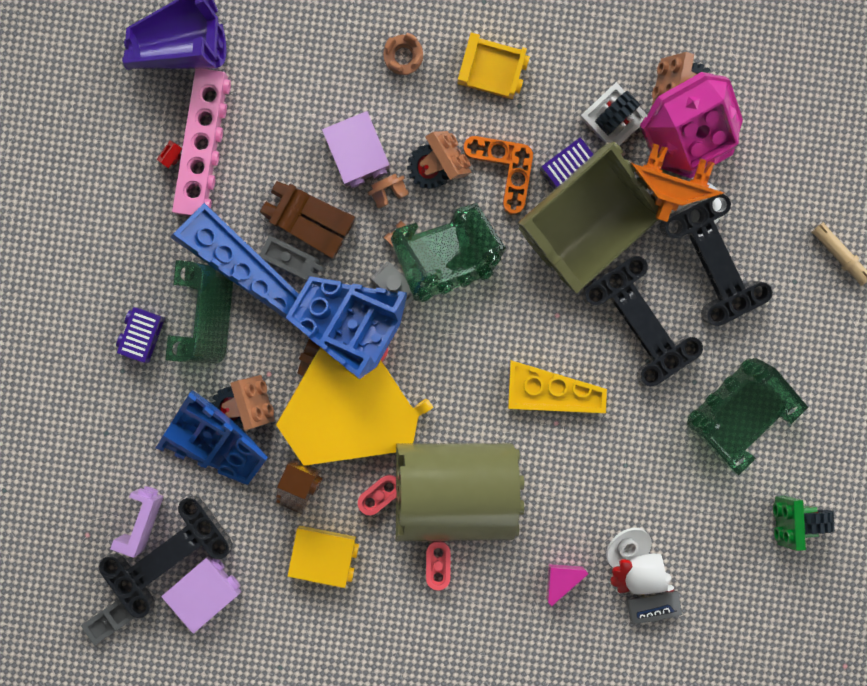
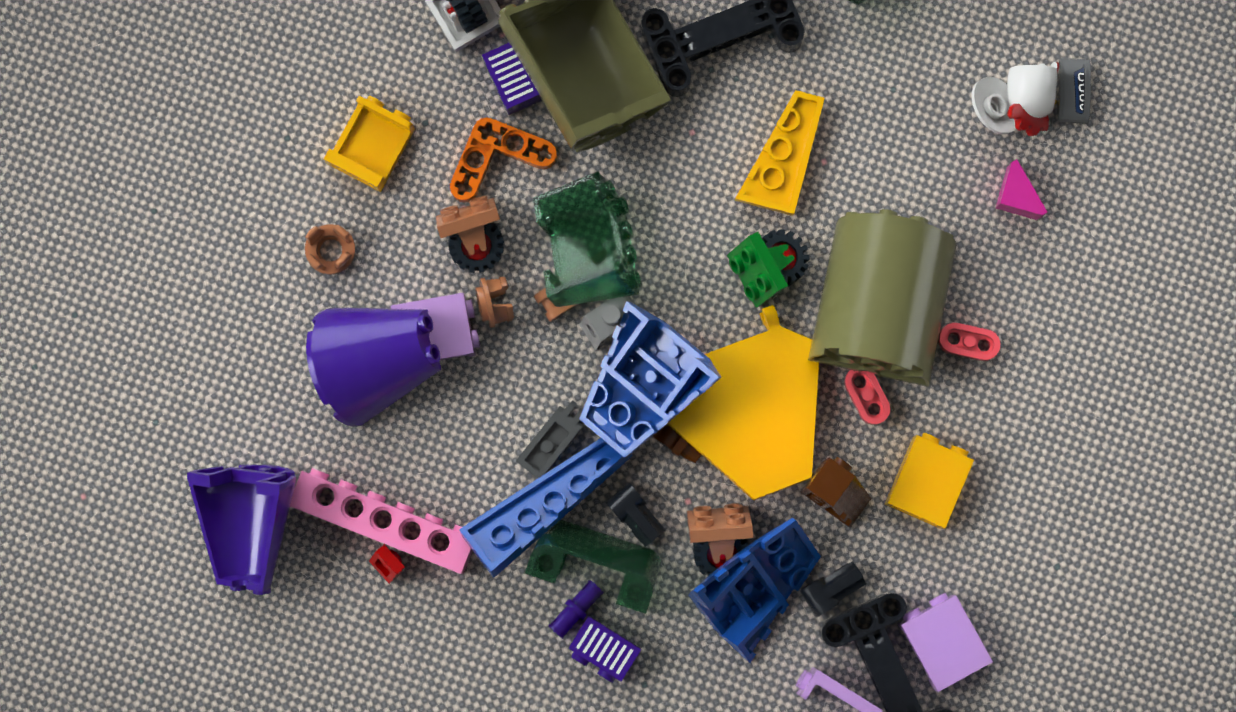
camera: 70 degrees left, 5 degrees down
(166, 306) = (575, 609): none -> dark purple pin
(220, 495) = (828, 591): none -> black piece
(251, 332) = (631, 509): none -> black piece
(294, 205) = (485, 416): reddish brown hips -> none
(322, 102) = (369, 358): none -> dark purple cone
(464, 397) = (768, 264): none -> green plate

